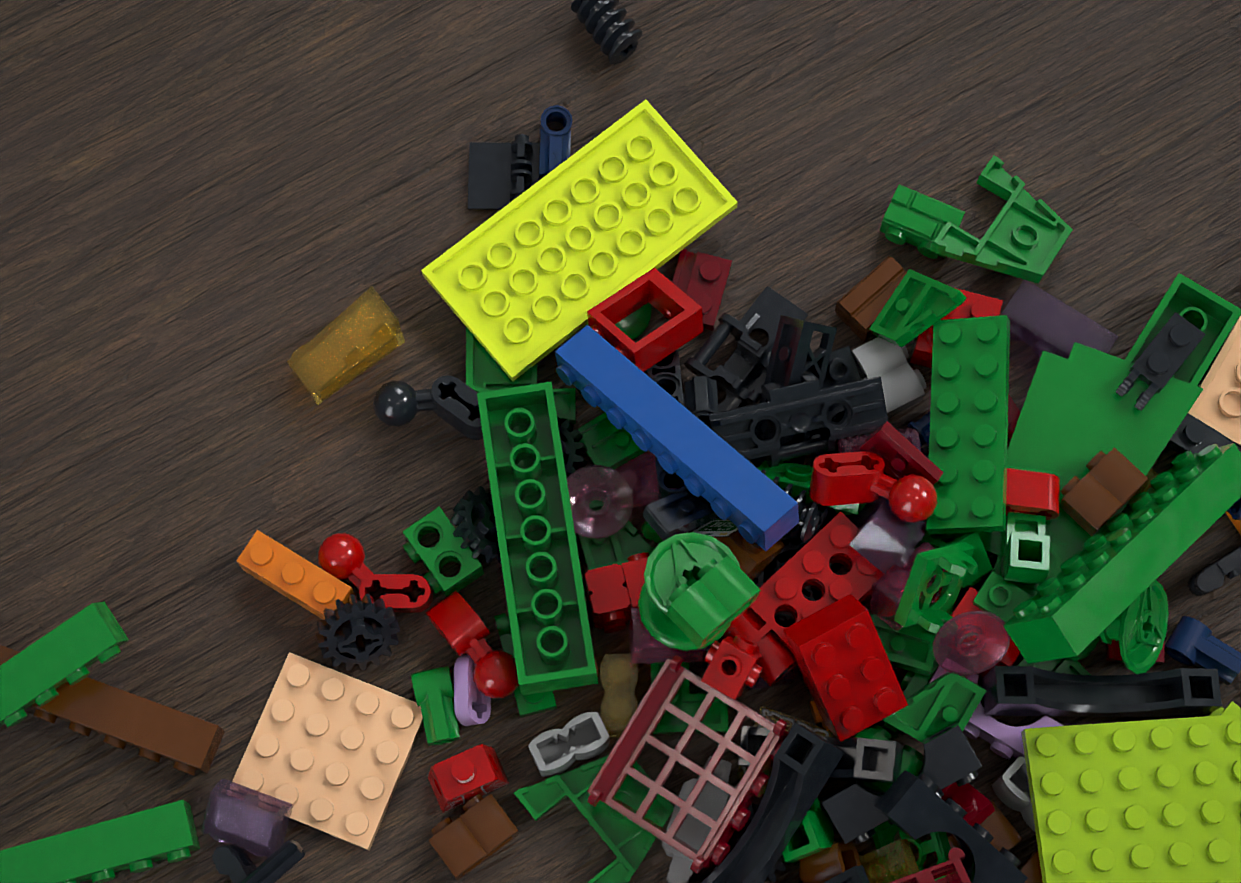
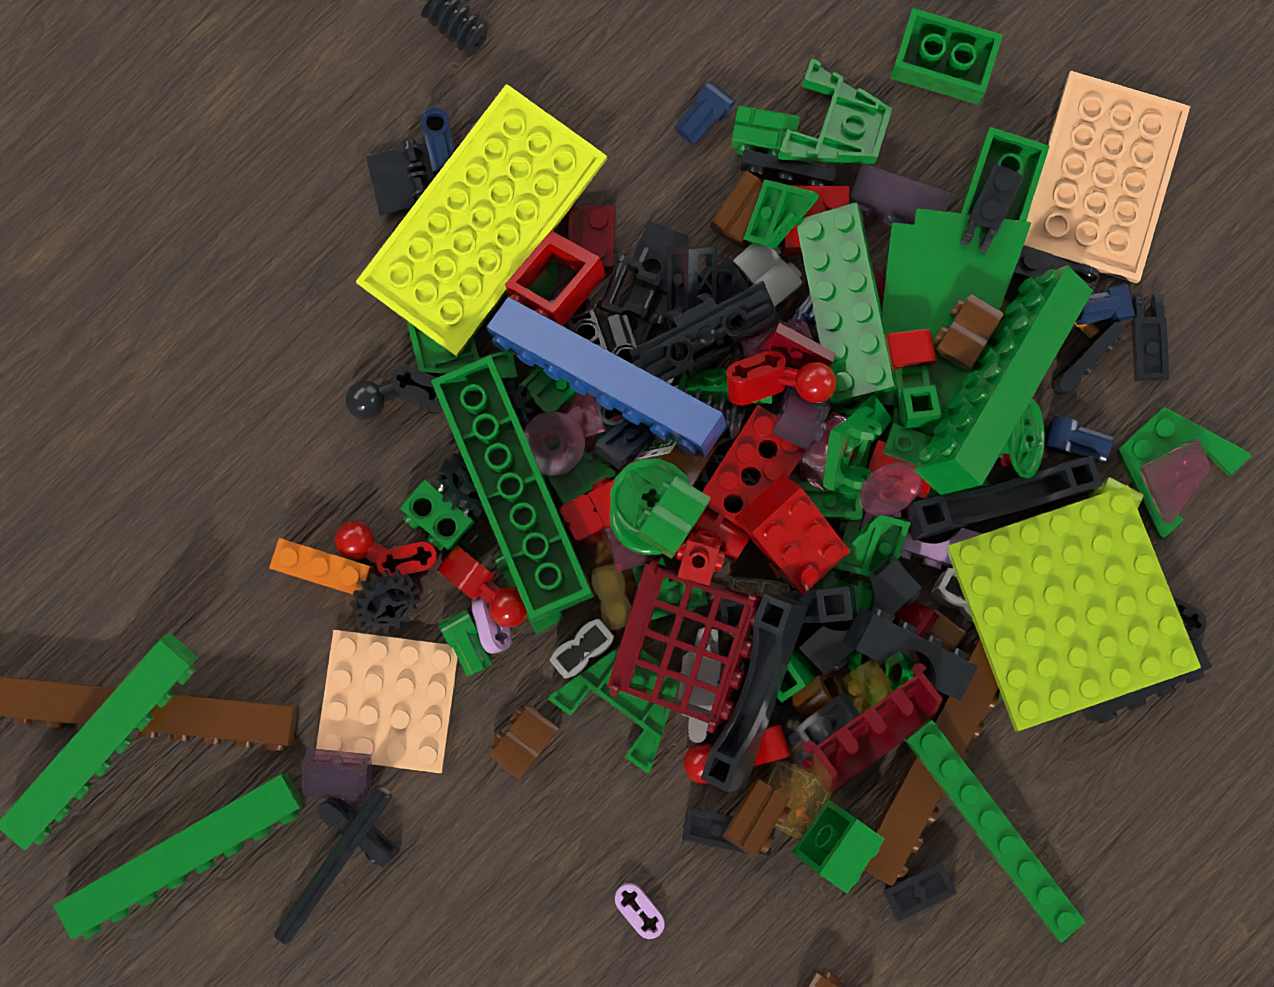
camera: 10 degrees left, 10 degrees up
(347, 346) = (310, 362): clear yellow wedge -> none
(466, 776) = (506, 695): red torso -> none
(865, 180) = (710, 107): none -> dark blue piece
(936, 266) = (786, 170): none -> black plate
(1146, 187) = (946, 56): none -> green brick

